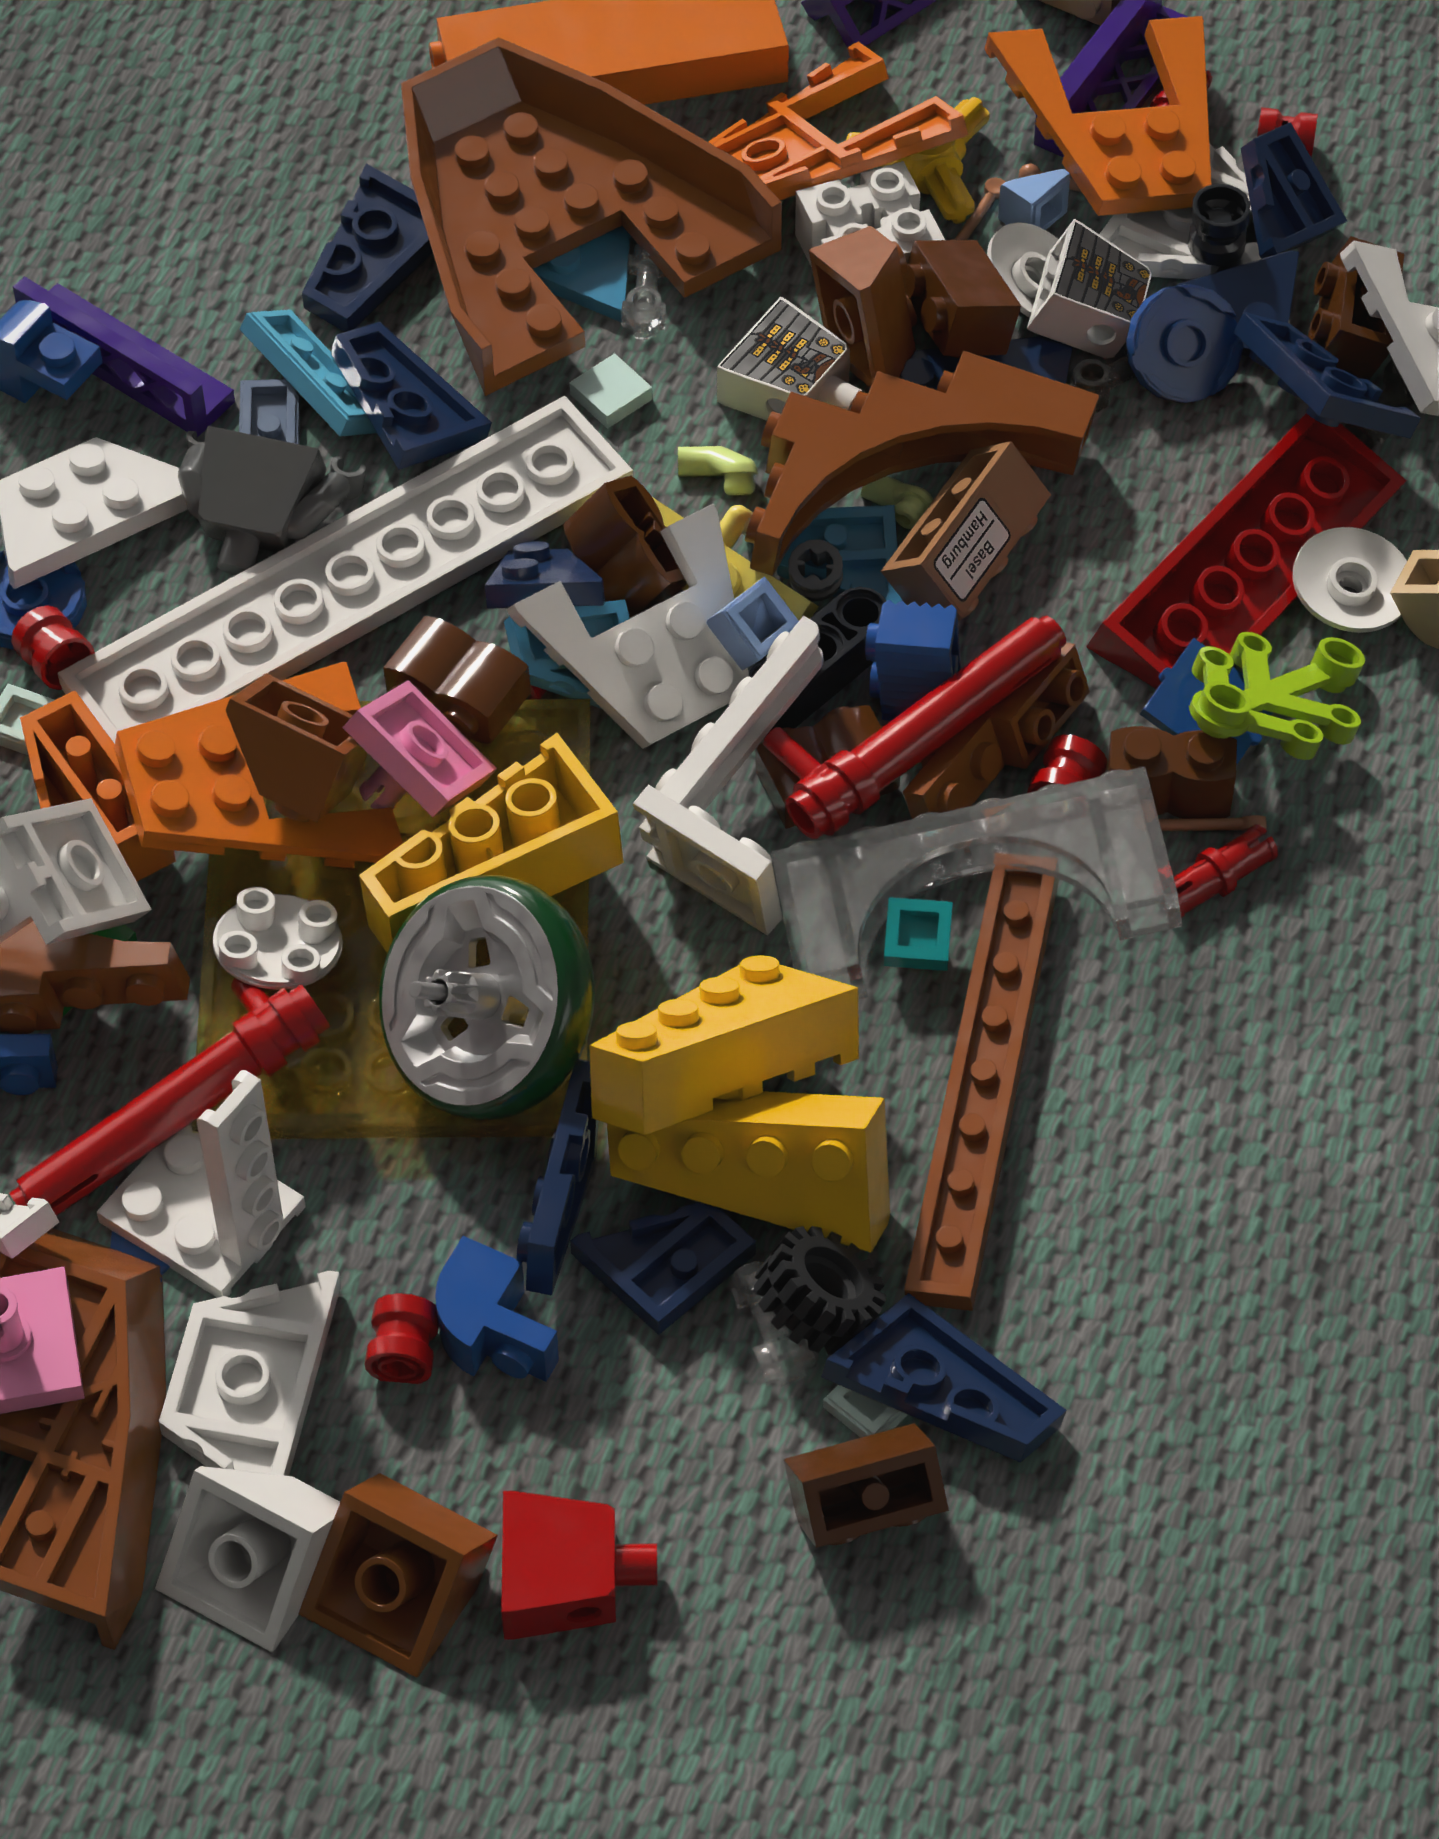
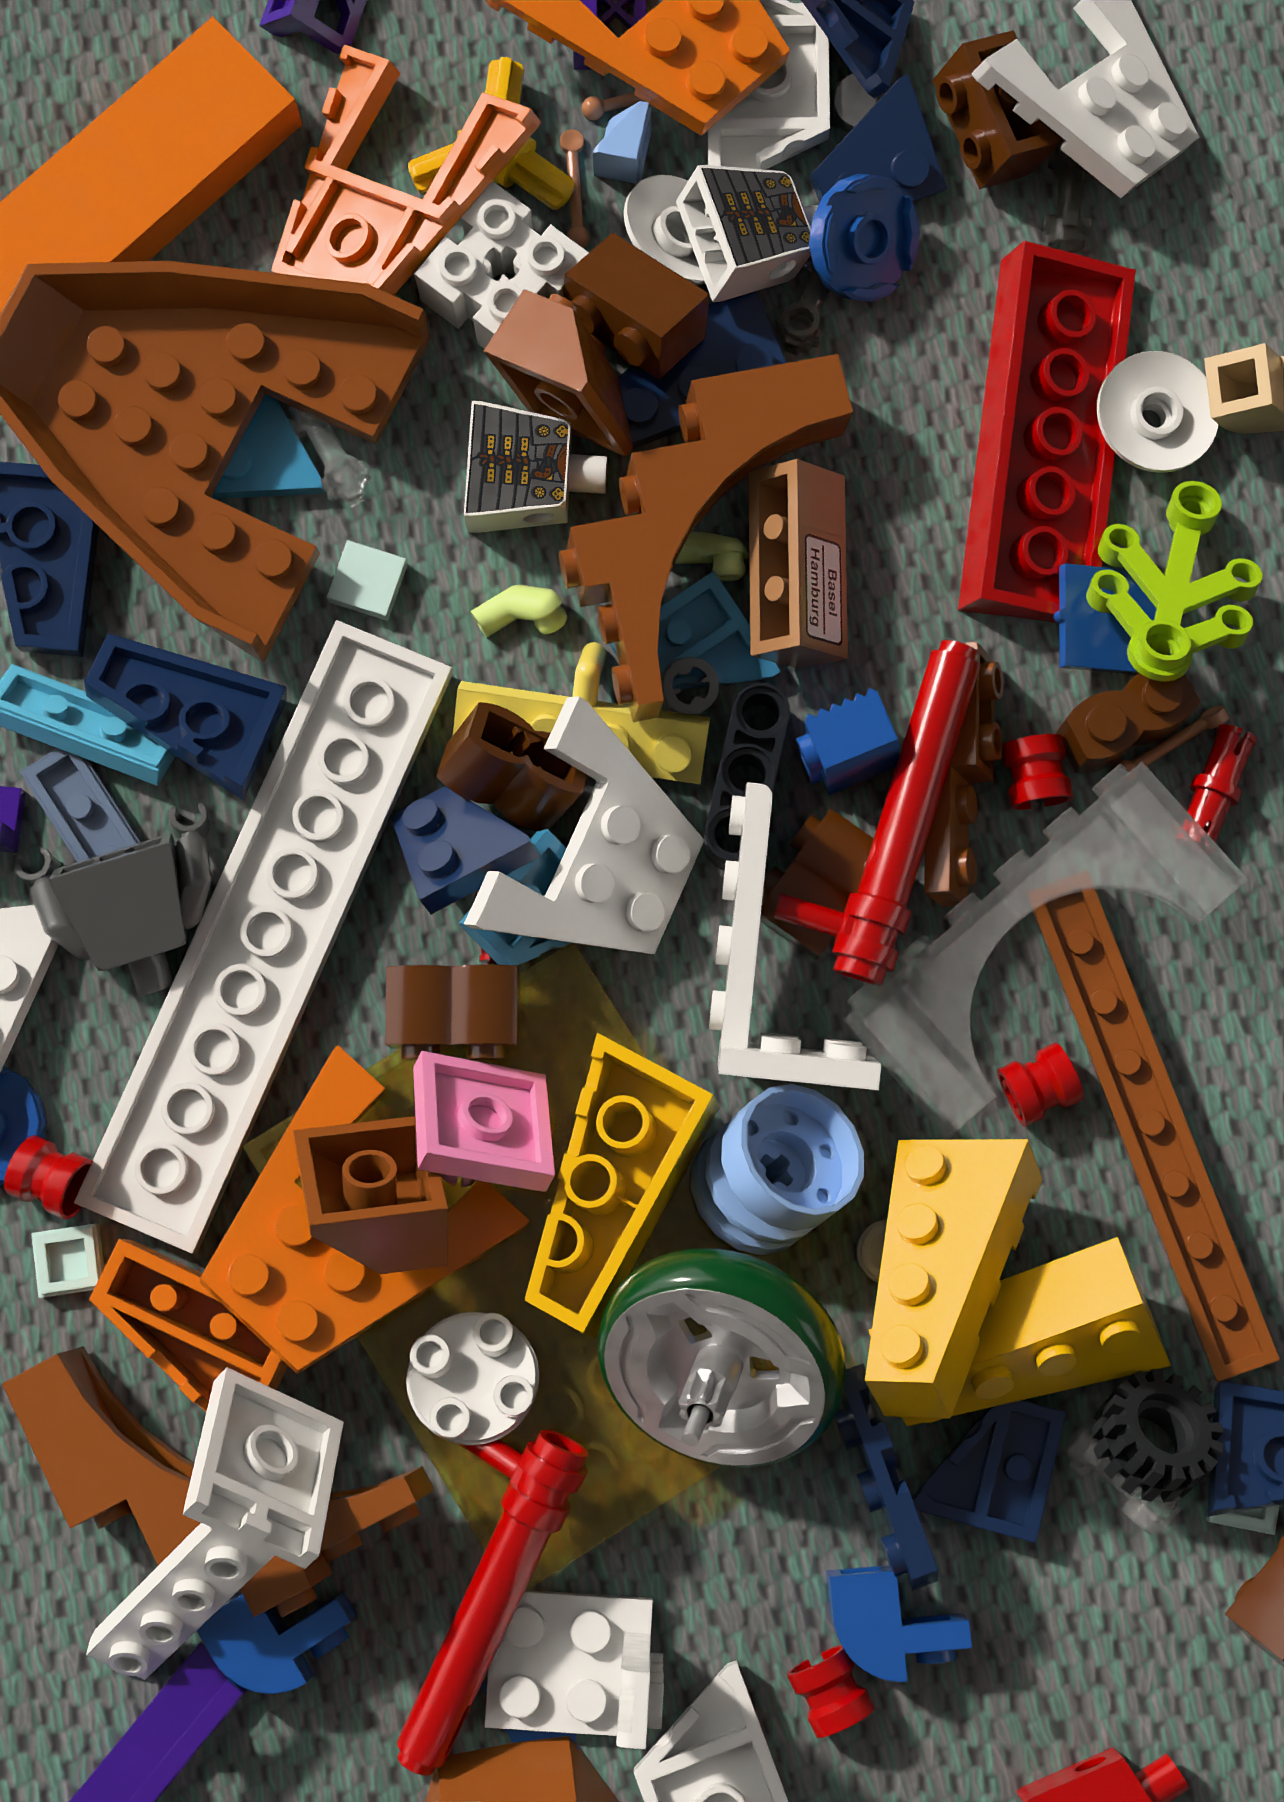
camera: 30 degrees left, 25 degrees up
(642, 913) = (777, 1169): none -> light blue wheel
(752, 623) = (684, 790): light blue slope -> none
(907, 997) = (1041, 1084): none -> red wheel
(918, 934) = (1015, 1020): teal tile -> none
(1219, 224) = (825, 72): black wheel -> none
(1311, 375) = (1035, 227): dark blue wing -> none

